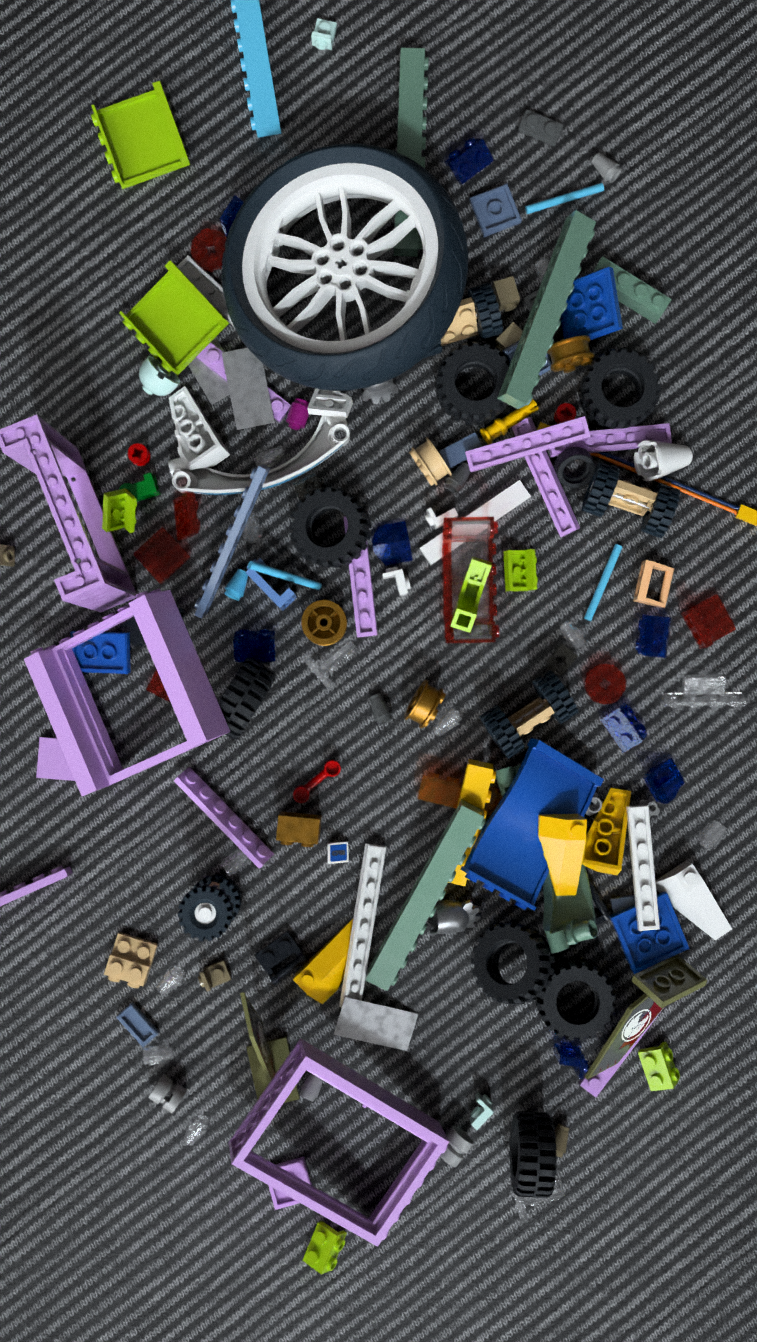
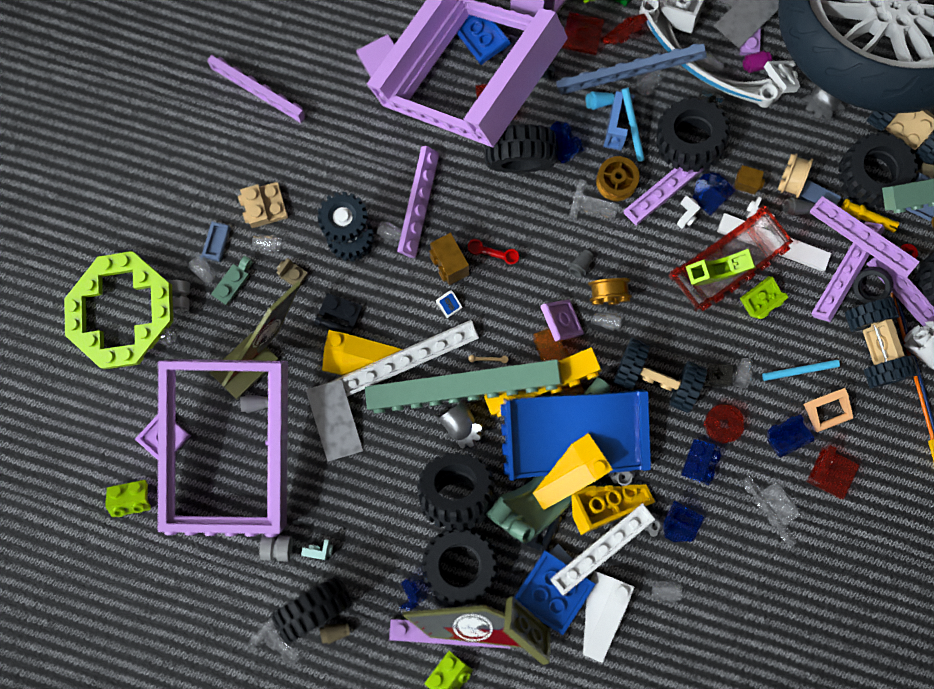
camera: 55 degrees right, 10 degrees down
(161, 1195) = (145, 334): none -> plate
(186, 1033) = (232, 281): none -> sand green plate
(405, 504) = (749, 180): none -> pearl gold brick
(419, 836) = (504, 359): none -> tan hinge
(421, 764) = (562, 320): none -> lavender tile

